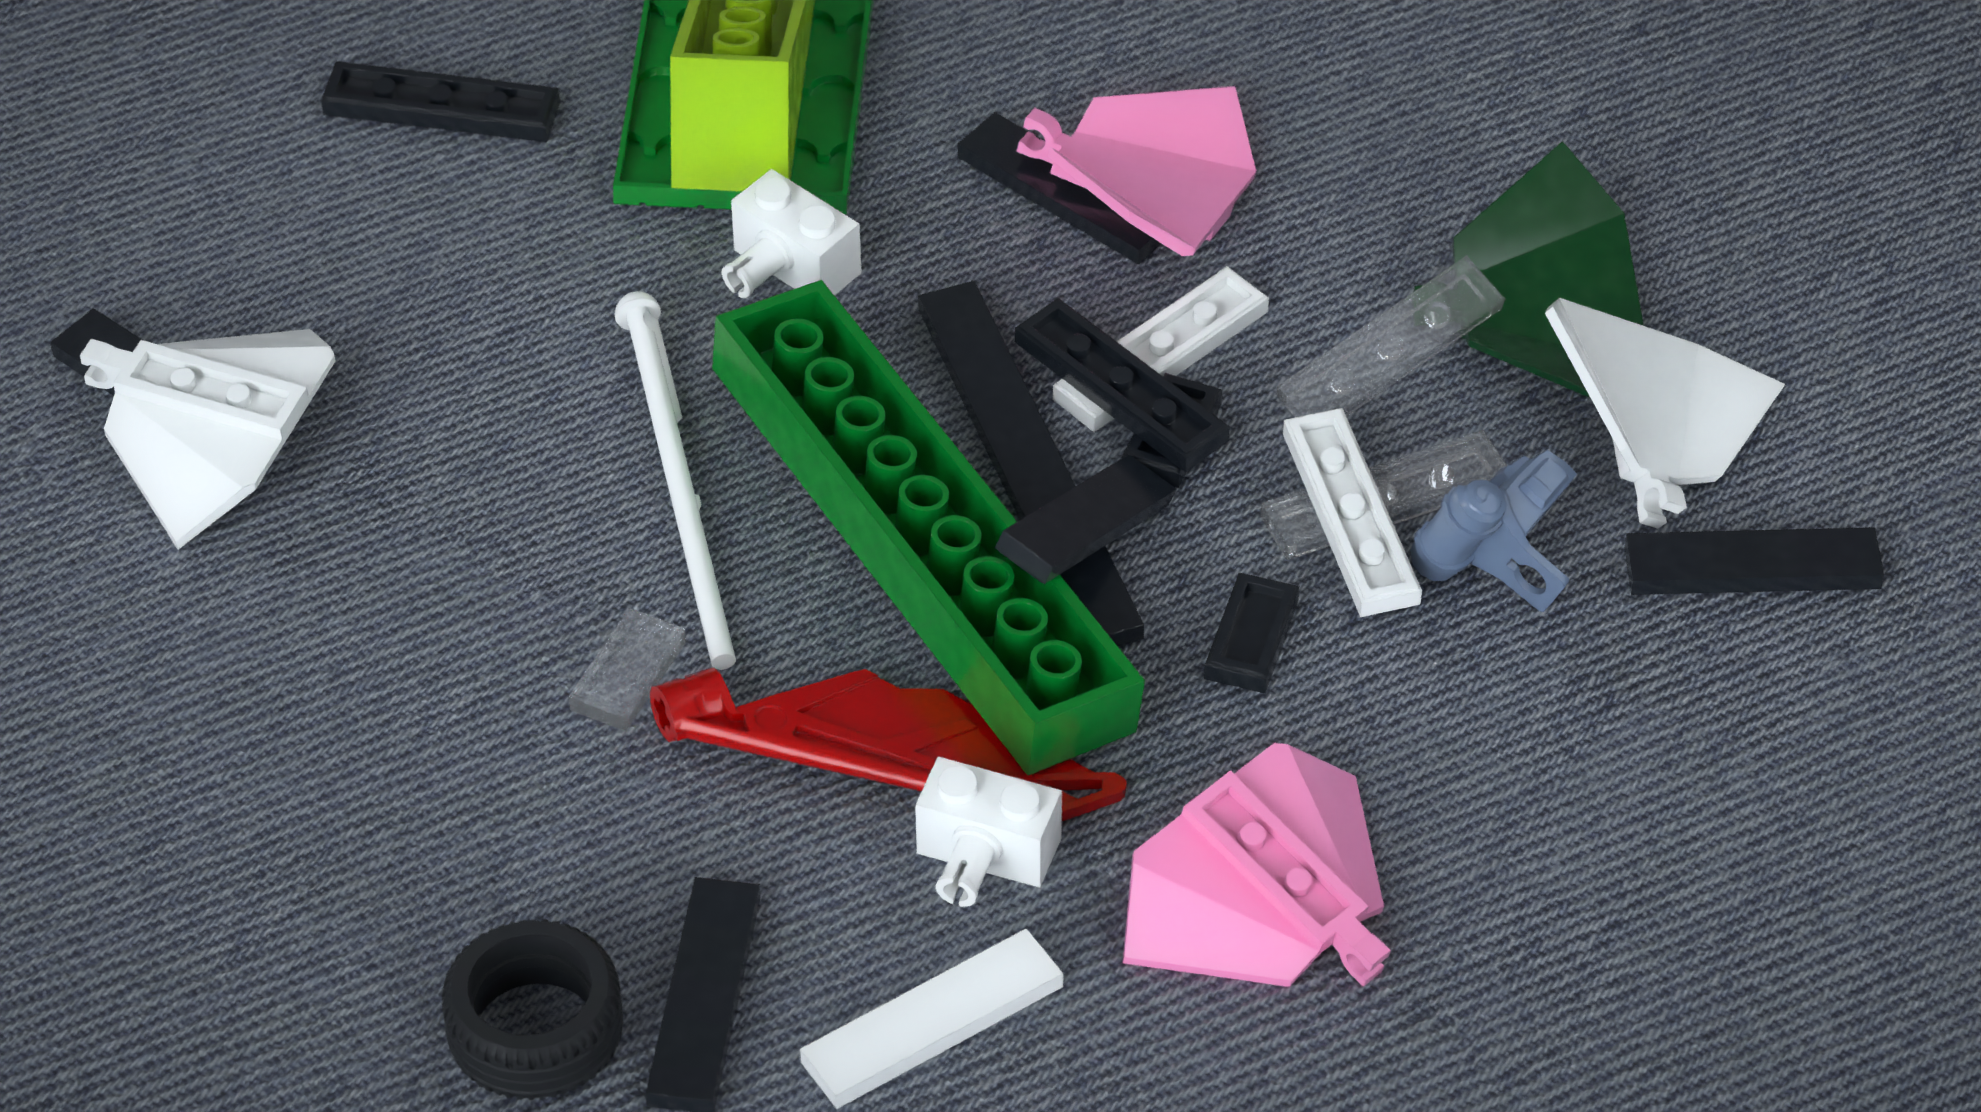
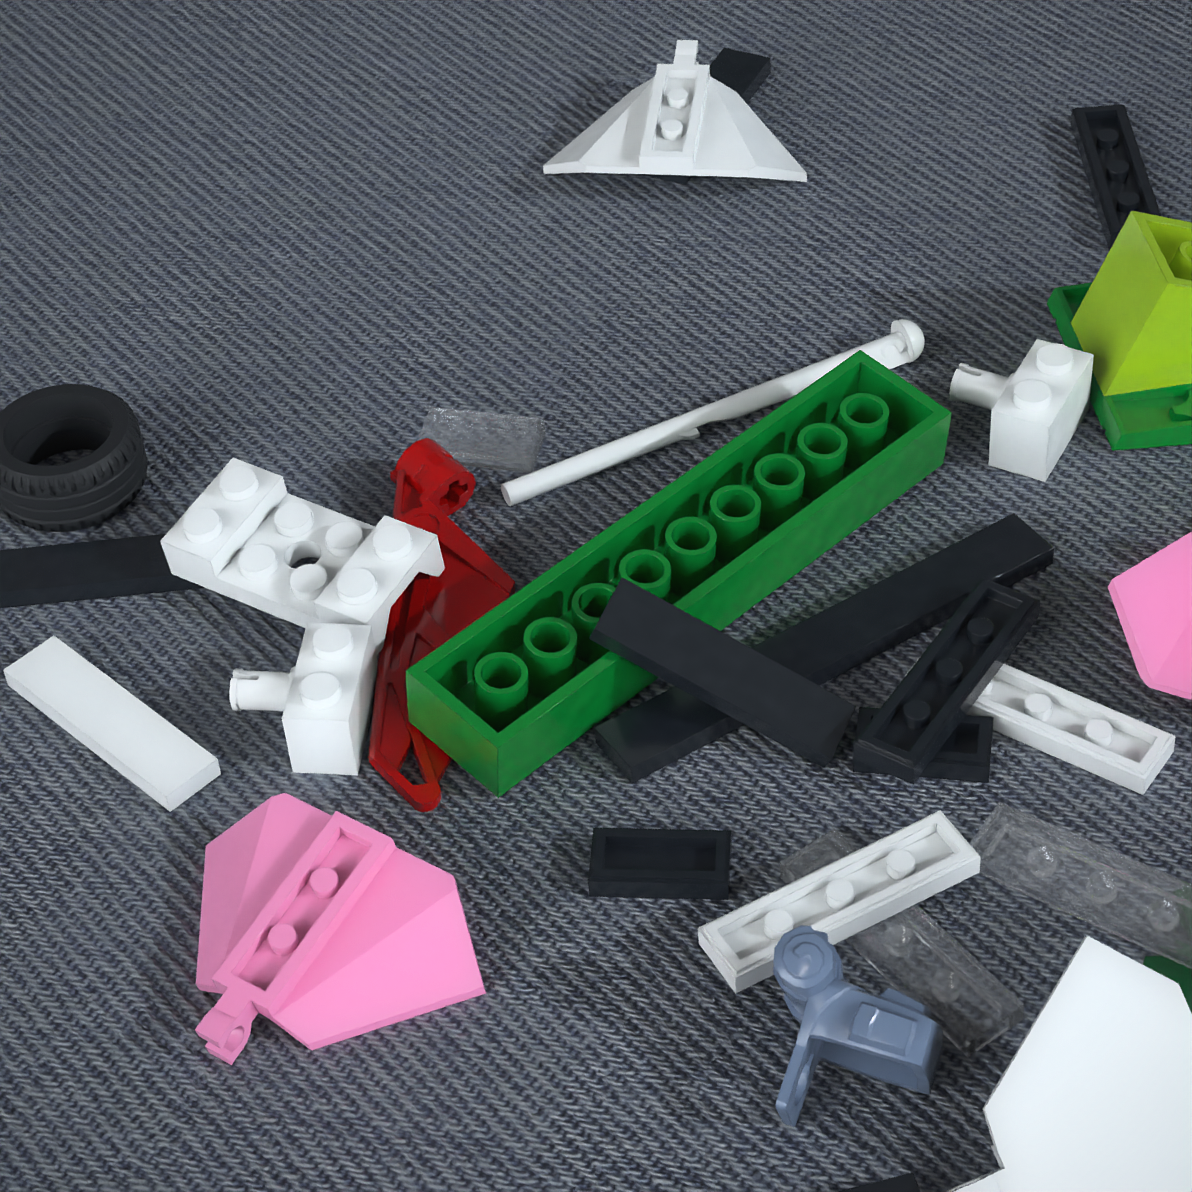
camera: 80 degrees right, 5 degrees down
(840, 766) = (251, 532): none -> white piece

